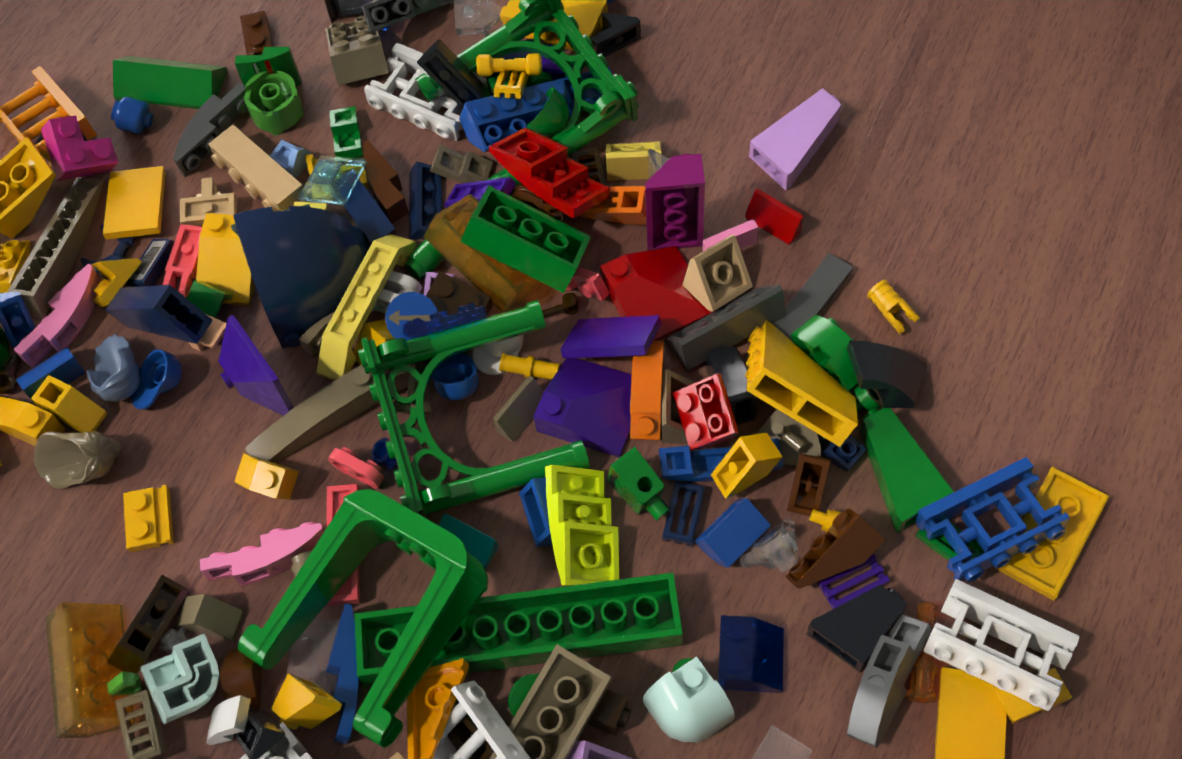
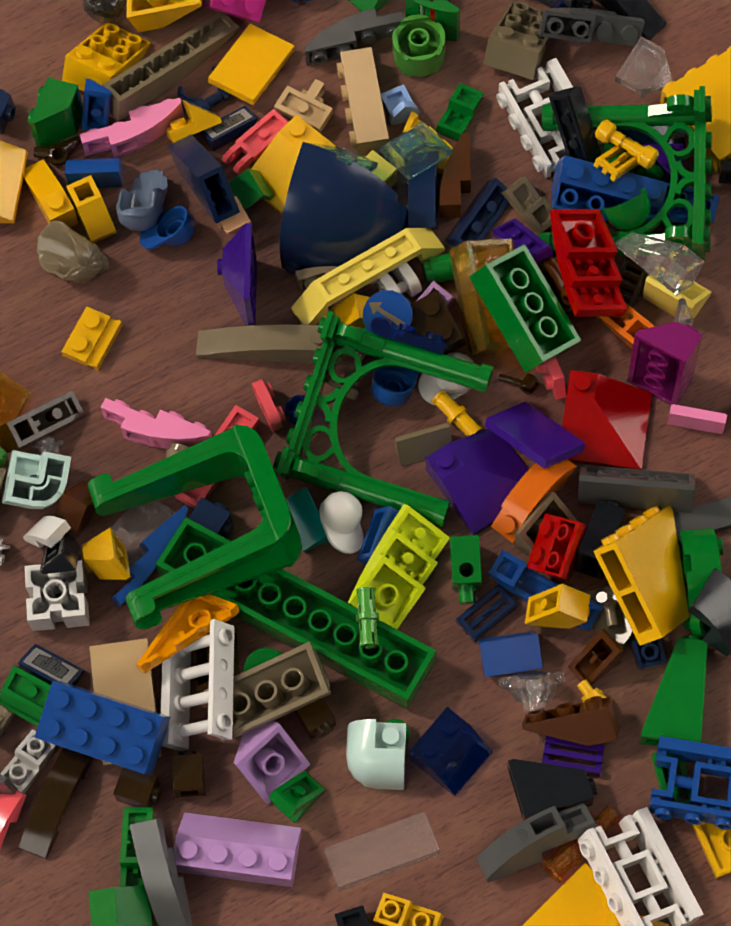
camera: 35 degrees right, 5 degrees up
(209, 617) = (85, 446): dark tan slope -> none
(266, 477) = (196, 366): yellow slope -> none
(378, 596) = (213, 517): none -> dark blue brick
(496, 519) = (341, 521): none -> white cap
(592, 585) = (367, 617): none -> bright green pin
(616, 129) = (665, 260): none -> clear slope
(718, 274) = (662, 441): tan slope -> none

